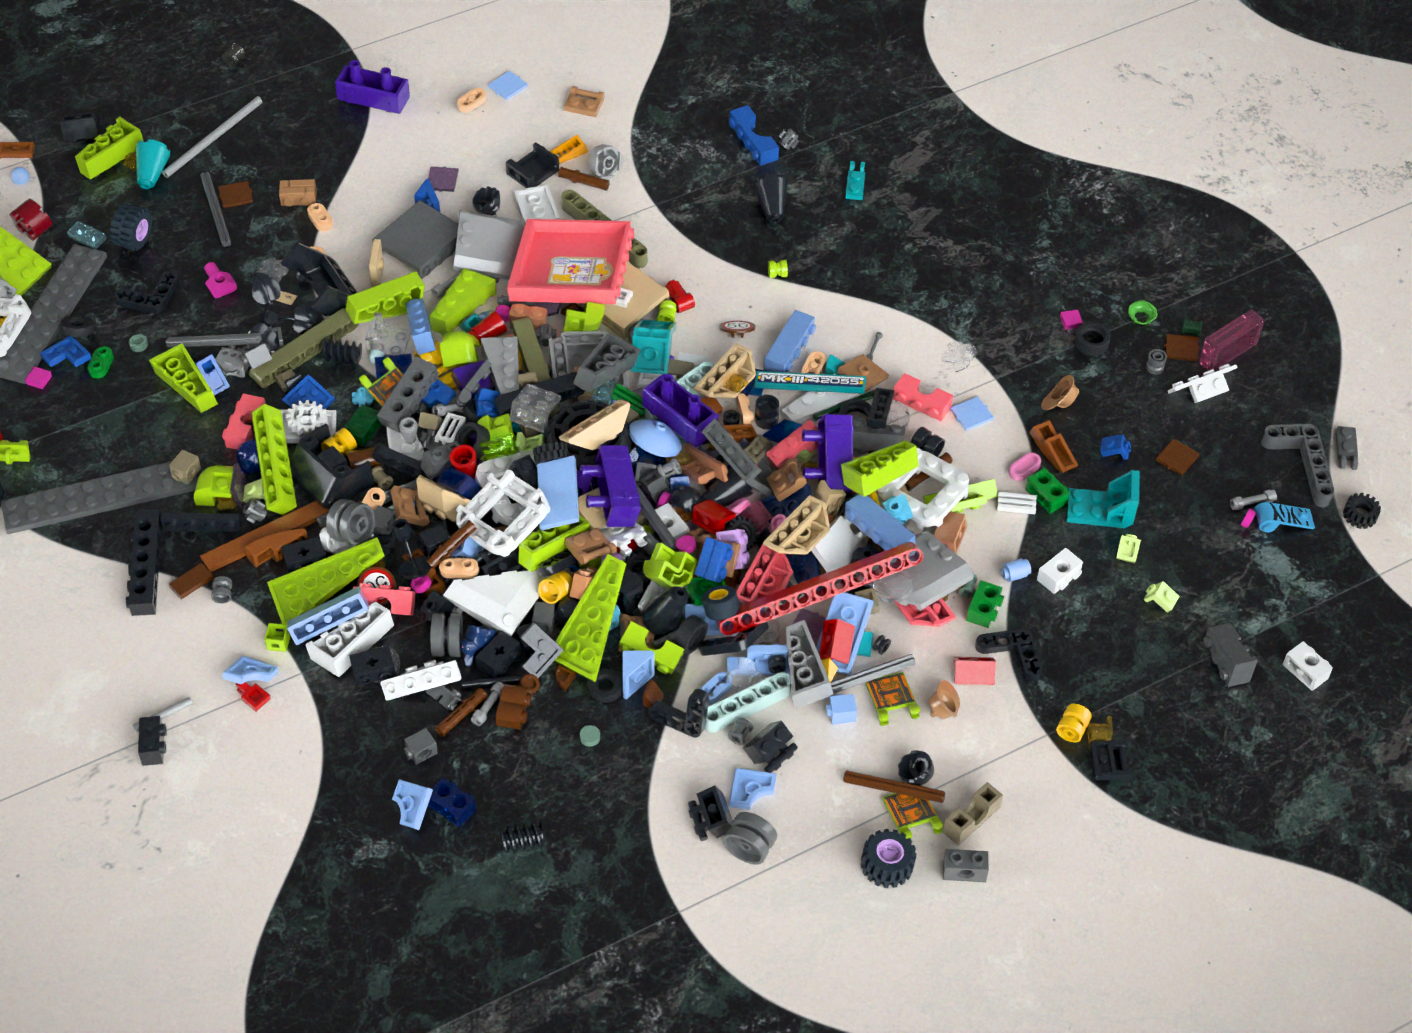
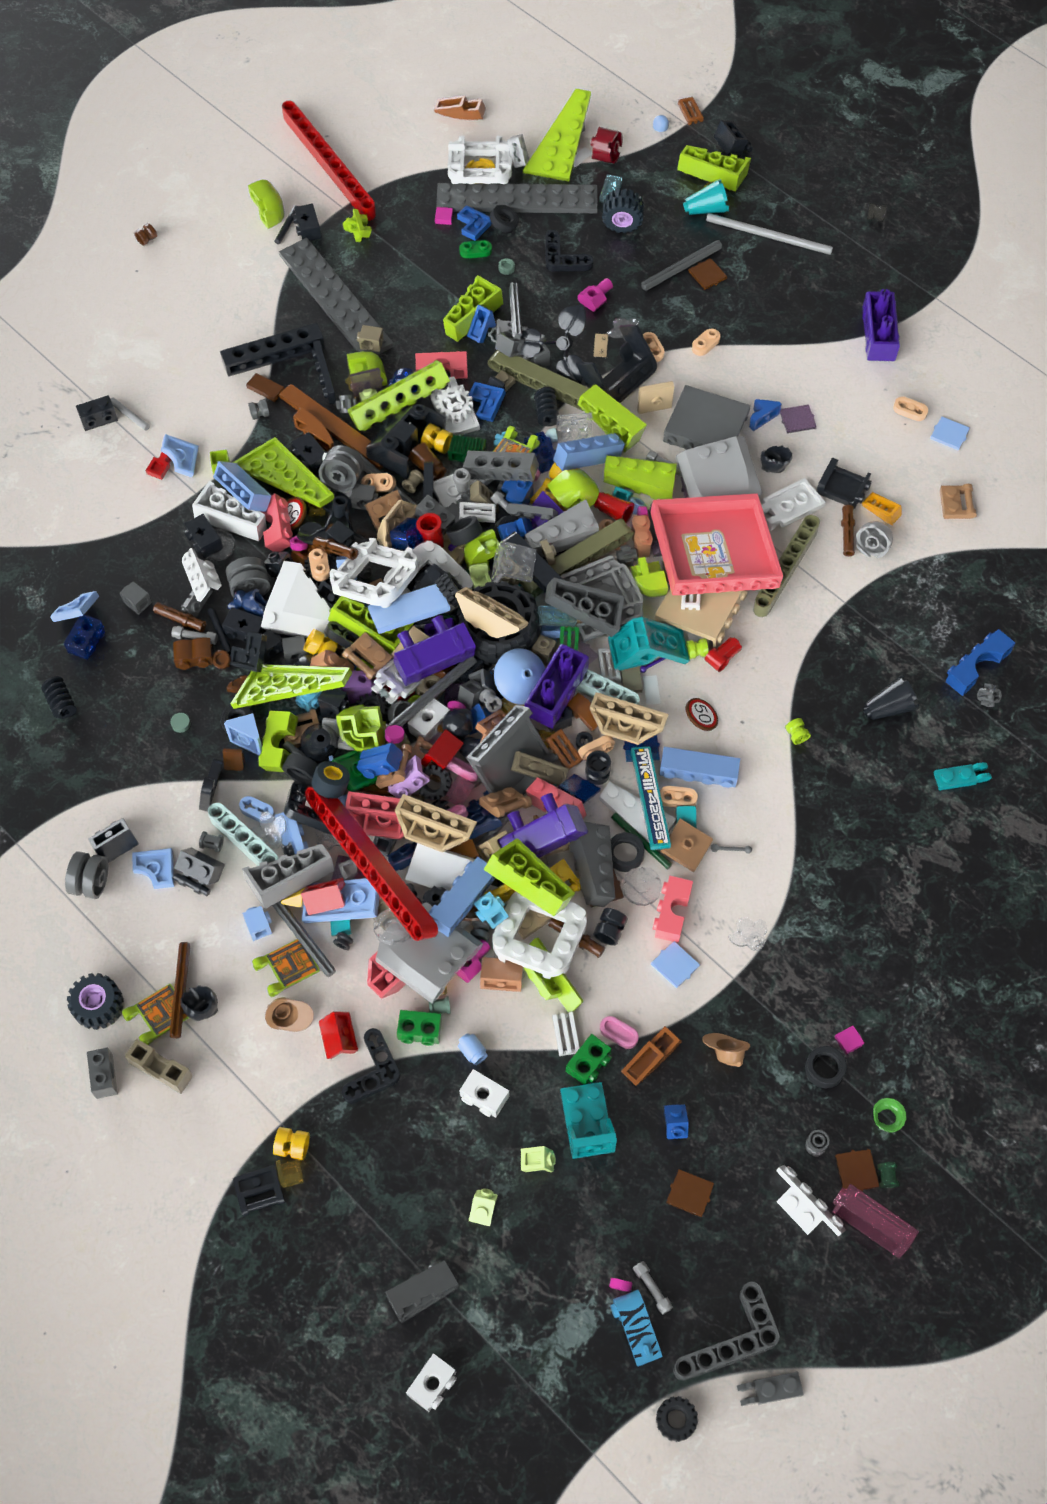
camera: 75 degrees right, 10 degrees up
(297, 192) = (724, 315): medium nougat brick -> none
(500, 447) = (458, 551): clear neon green arm -> none
(736, 382) = (614, 723): clear yellow plate -> none
(812, 626) = (348, 869): none -> light grey tile
(880, 408) = (628, 866): black plate -> none

